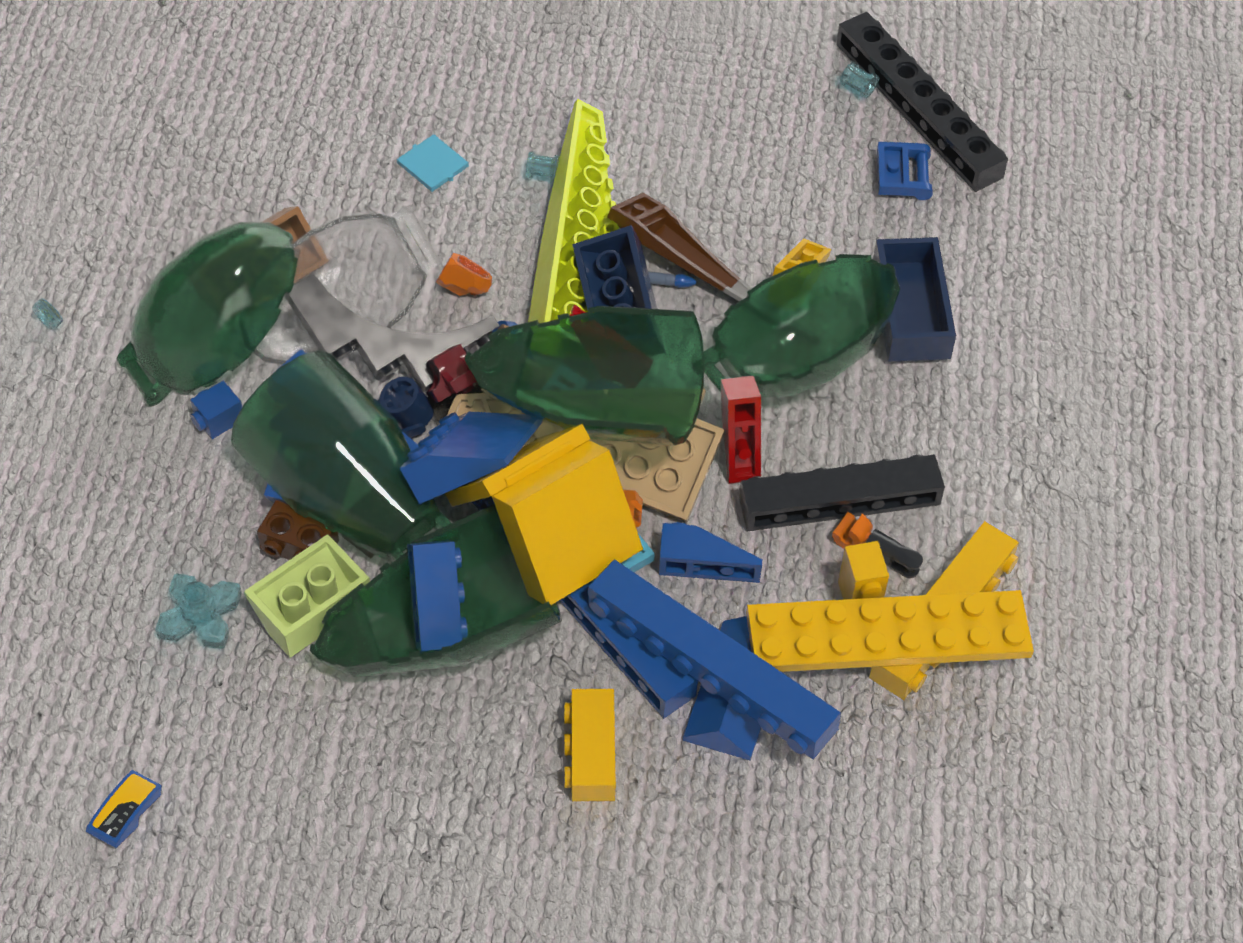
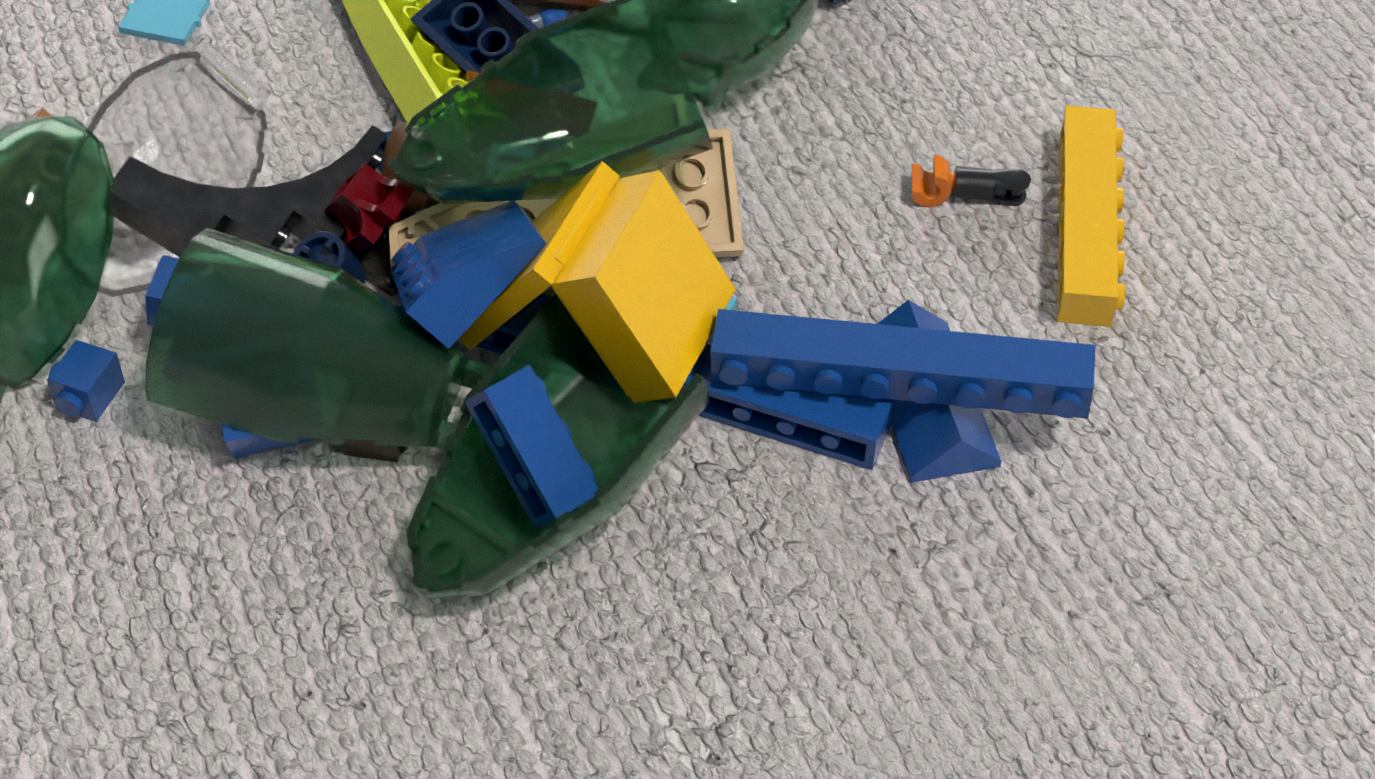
camera: 30 degrees left, 5 degrees down
(199, 610) = (224, 614): clear light blue plant -> none
(298, 529) = (293, 476): reddish brown brick -> none
(302, 591) = (356, 528): yellowish green slope -> none
(464, 276) = (295, 112): orange rock -> none
(591, 745) = (822, 533): yellow brick -> none
(700, 554) = (793, 275): blue slope -> none
(742, 427) = (741, 102): red slope -> none
(835, 491) = (884, 149): black brick -> none
(863, 572) = (988, 216): yellow brick -> none
(890, 631) = (1061, 251): yellow plate -> none

